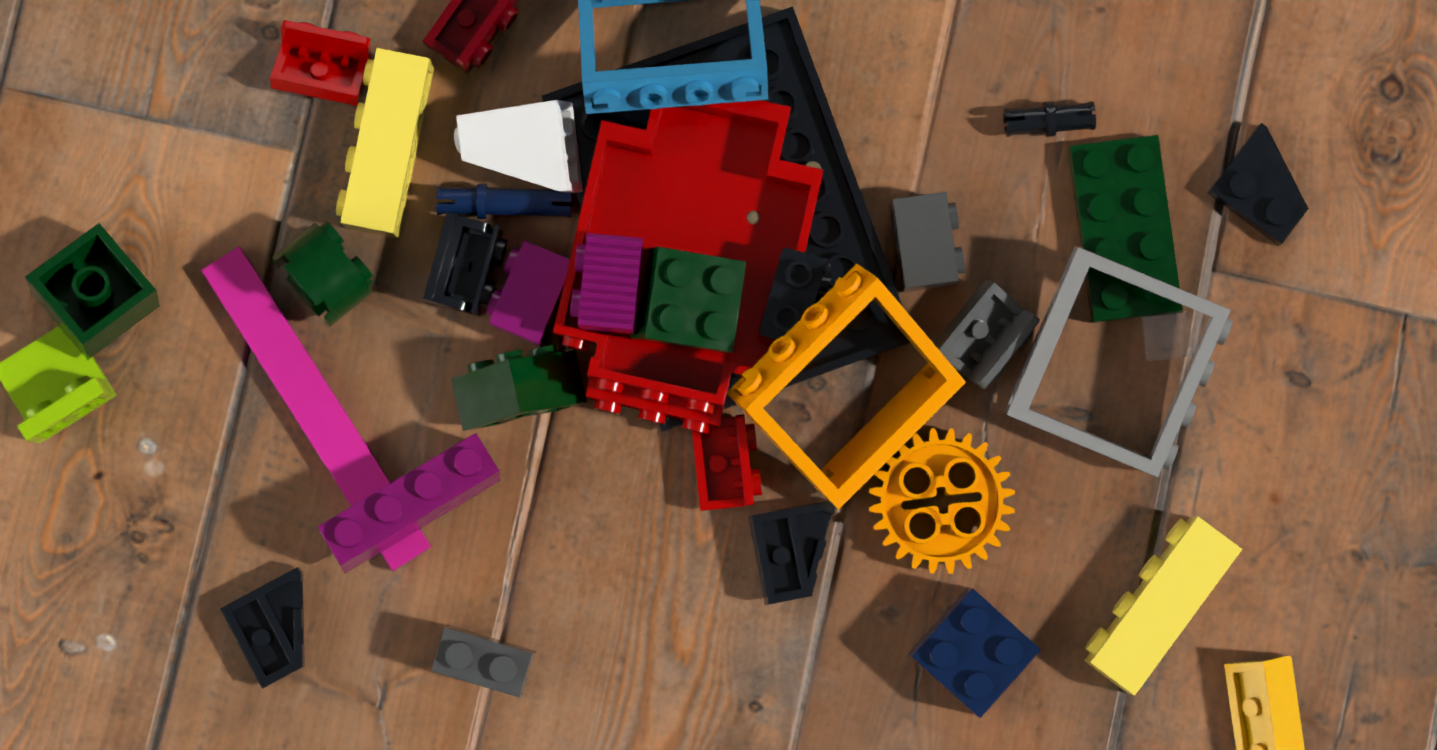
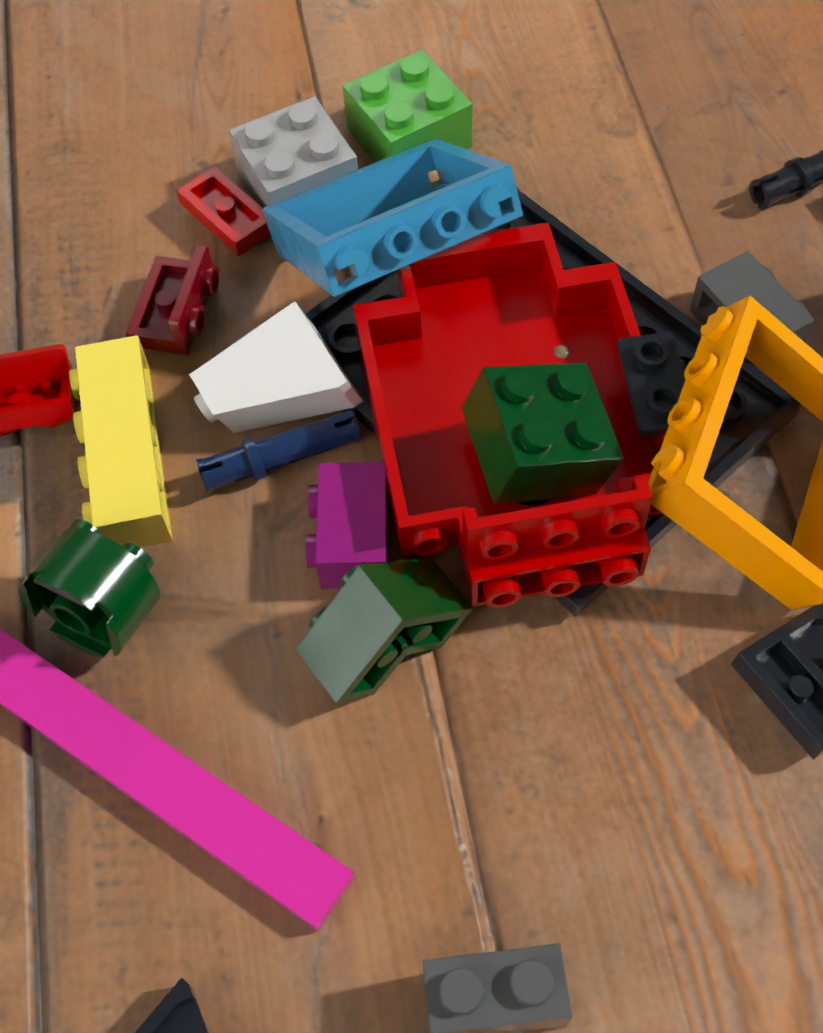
camera: 20 degrees left, 25 degrees down
(410, 503) = (299, 821): magenta brick -> none
(465, 265) = (259, 528): black hinge -> none
(608, 283) = (444, 441): magenta brick -> none
(724, 465) = (675, 613): red bracket -> none

